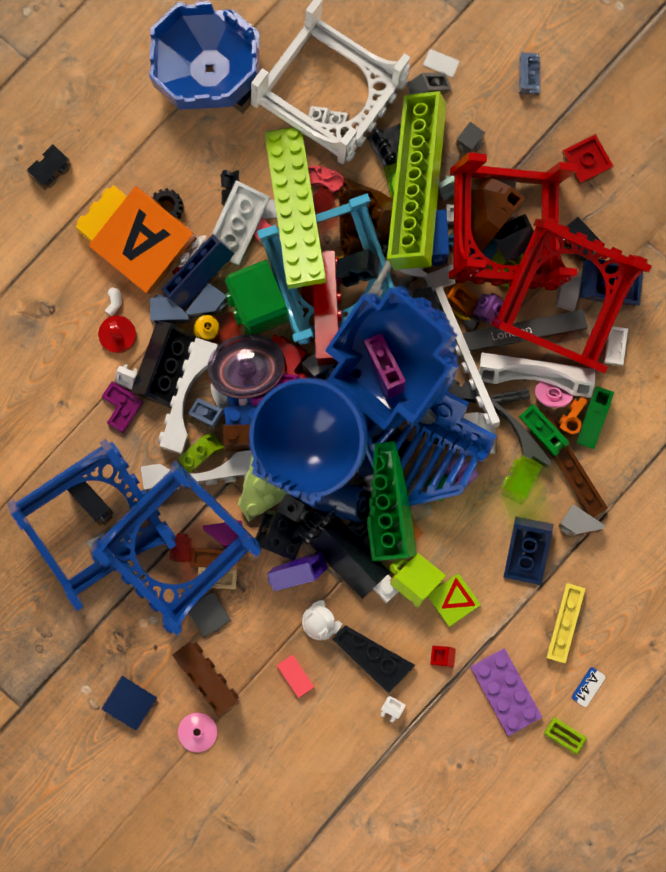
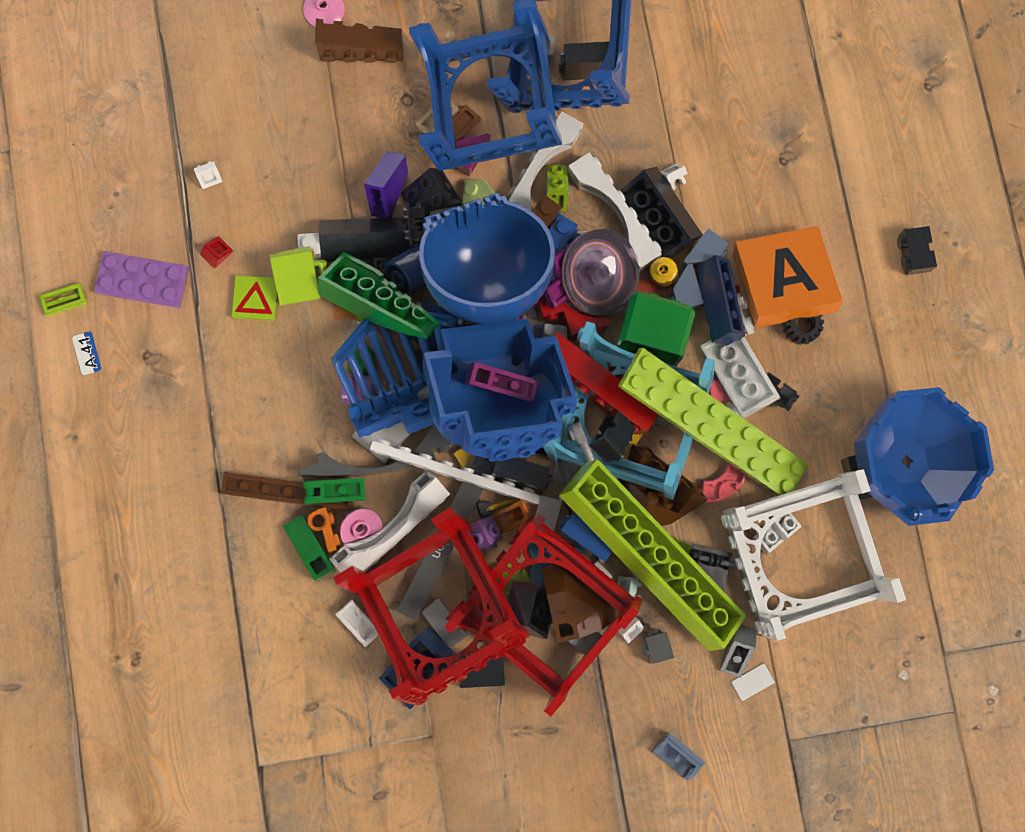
camera: 120 degrees right, 0 degrees up
(100, 213) = (842, 262): yellow brick -> none
(116, 301) = (750, 218): white arm -> none
(117, 334) = (718, 197): red tile -> none
(126, 404) = (646, 156): magenta tile -> none
(182, 550) = (486, 106): clear red brick -> none
(206, 413) = (587, 214): sand blue slope -> none
(209, 614) = (412, 90): dark grey piece -> none
(295, 676) = (302, 119): coral tile -> none
(319, 622) = (330, 168): white helmet -> none
(323, 200) = (701, 463): clear red brick -> none
(377, 661) = (256, 193): black wing -> none
(511, 396) = (390, 490): dark grey axle -> none
(521, 480) = (306, 433): clear neon green piece -> none
(528, 550) = (243, 394): dark blue slope -> none
(565, 623) = (154, 375): light yellow plate -> none
(579, 523) = (228, 458): light grey slope -> none
(590, 157) = (553, 743): red plate -> none

